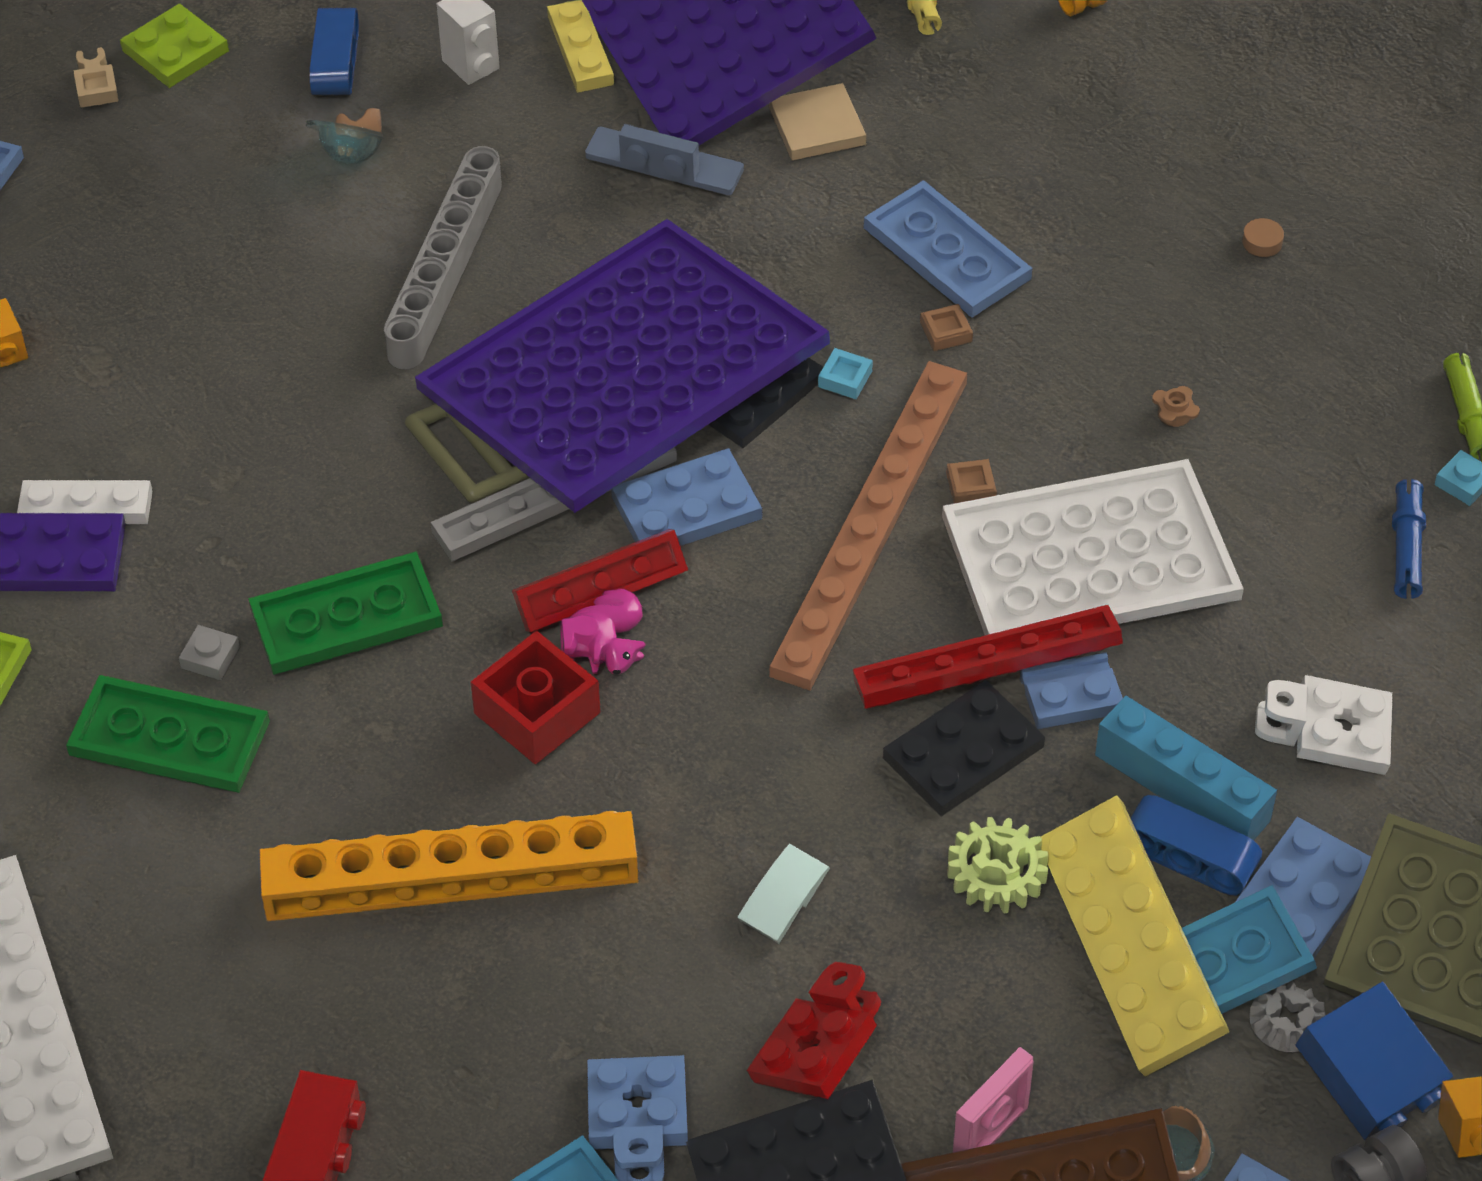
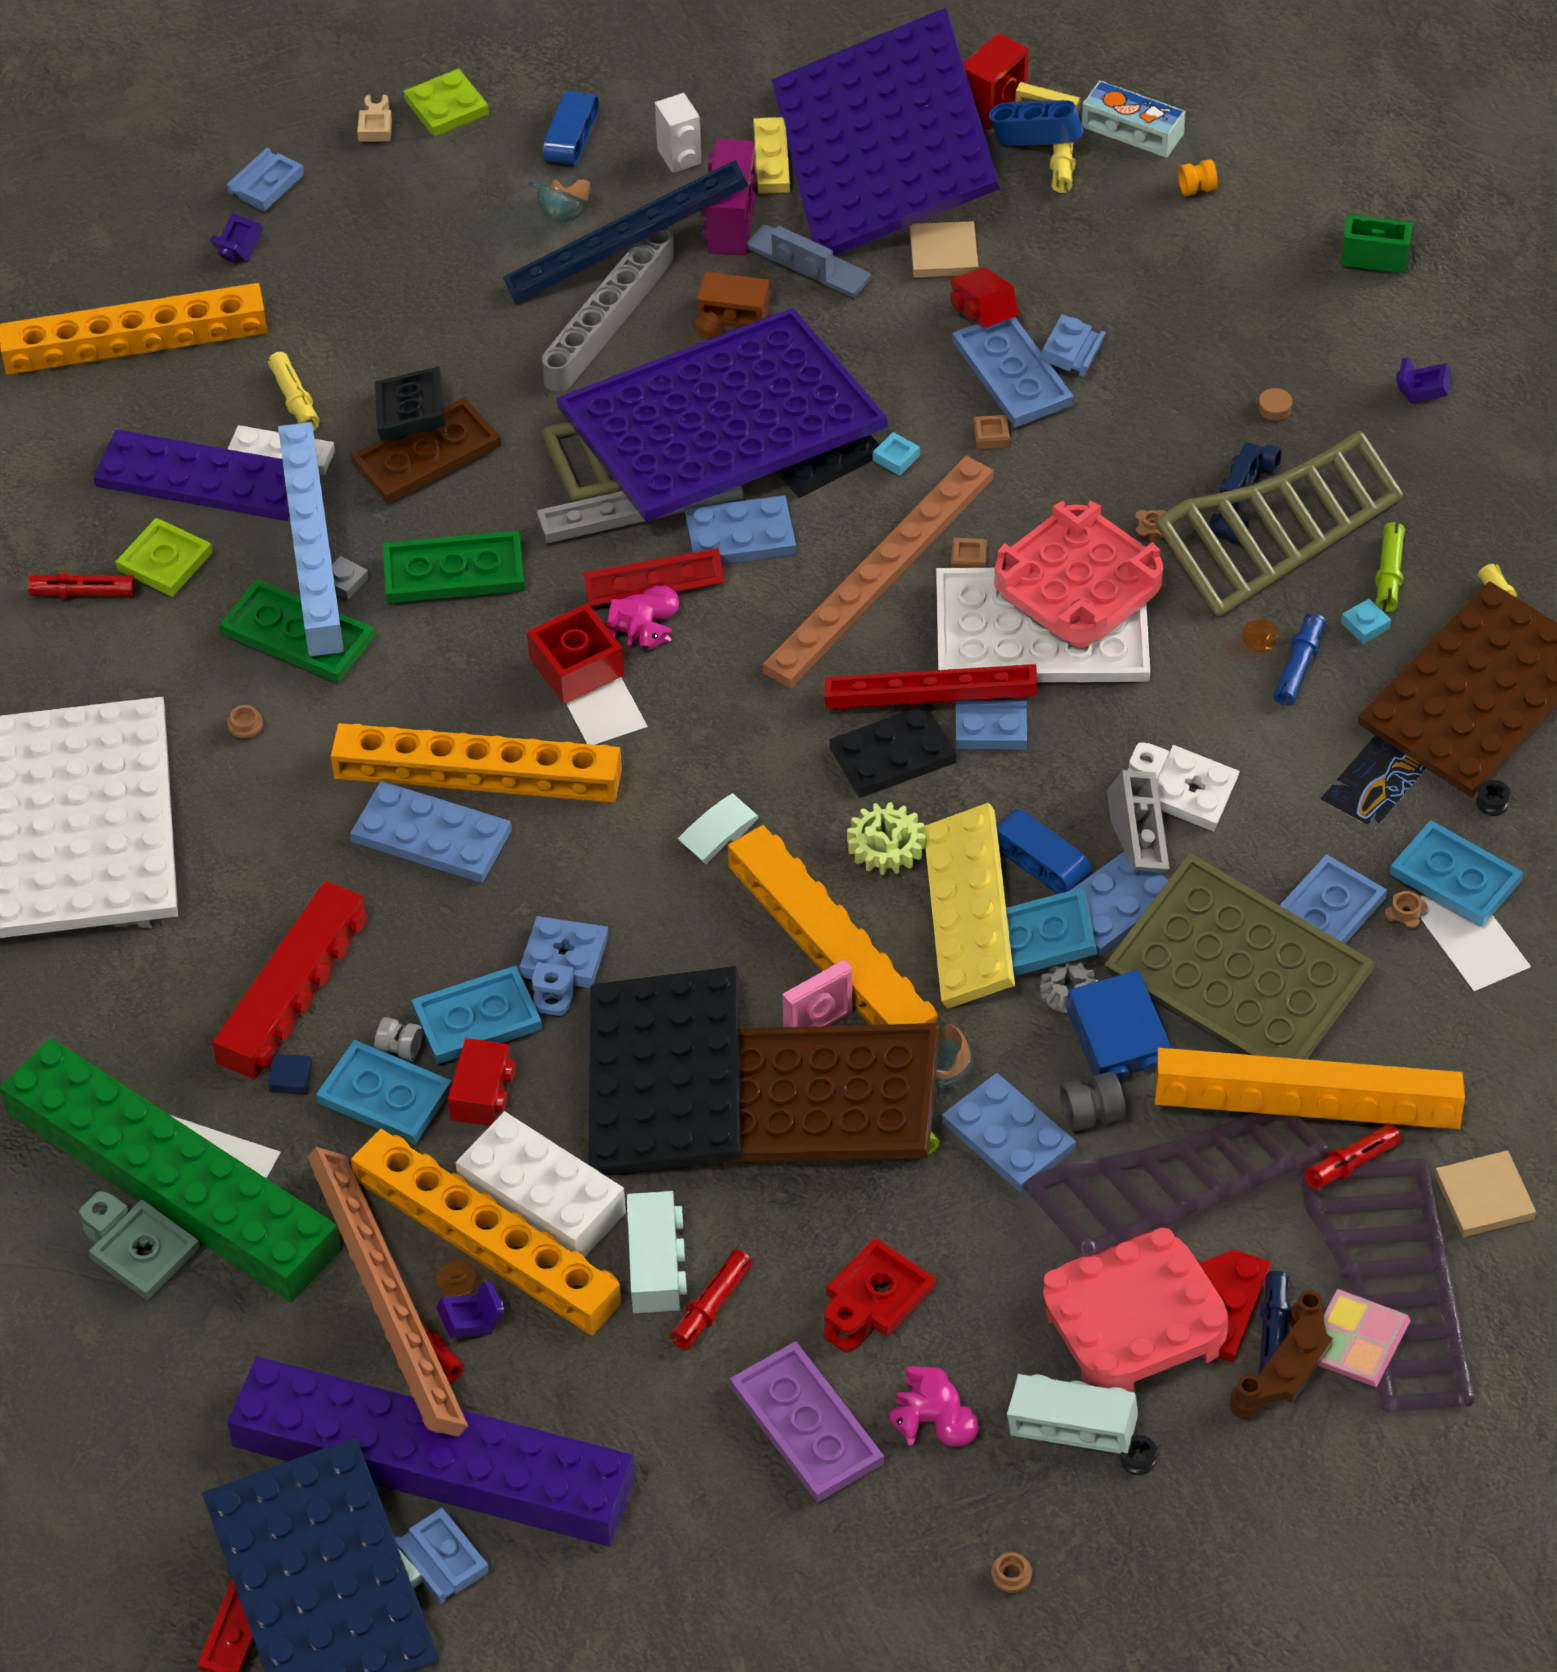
camera: 15 degrees right, 0 degrees up
(90, 435) = (297, 399): none -> light yellow pin
(132, 868) = (244, 722): none -> medium nougat plate
(160, 614) = (310, 539): none -> light blue brick
(236, 416) = (410, 404): none -> black plate
(268, 471) = (421, 457): none -> reddish brown plate
(415, 970) = (431, 831): none -> medium blue plate
(443, 161) = (625, 231): none -> dark blue tile
(553, 100) = (731, 218): none -> magenta brick
(569, 257) = (707, 324): none -> clear orange plate
(591, 222) = (734, 298): none -> dark orange brick
(591, 766) = (606, 713): none -> white sticker
(832, 1021) = (710, 930): red plate -> none
(890, 169) = (983, 297): none -> red brick
(968, 1009) = (824, 929): none -> light orange brick
(1008, 208) = (1072, 345): none -> medium blue plate
(1120, 483) = (1078, 574): none -> coral plate
(1183, 769) = (1052, 796): dark azure brick -> none
(1264, 309) = (1243, 472): none -> dark blue plate
(1292, 347) = (1253, 493): none -> olive bar
(1295, 765) = (1138, 820): none -> light grey slope
(1311, 33) = (1376, 243): none -> green slope
(1350, 518) = (1259, 635): none -> clear orange plate
(1425, 182) = (1424, 382): none -> dark purple bracket

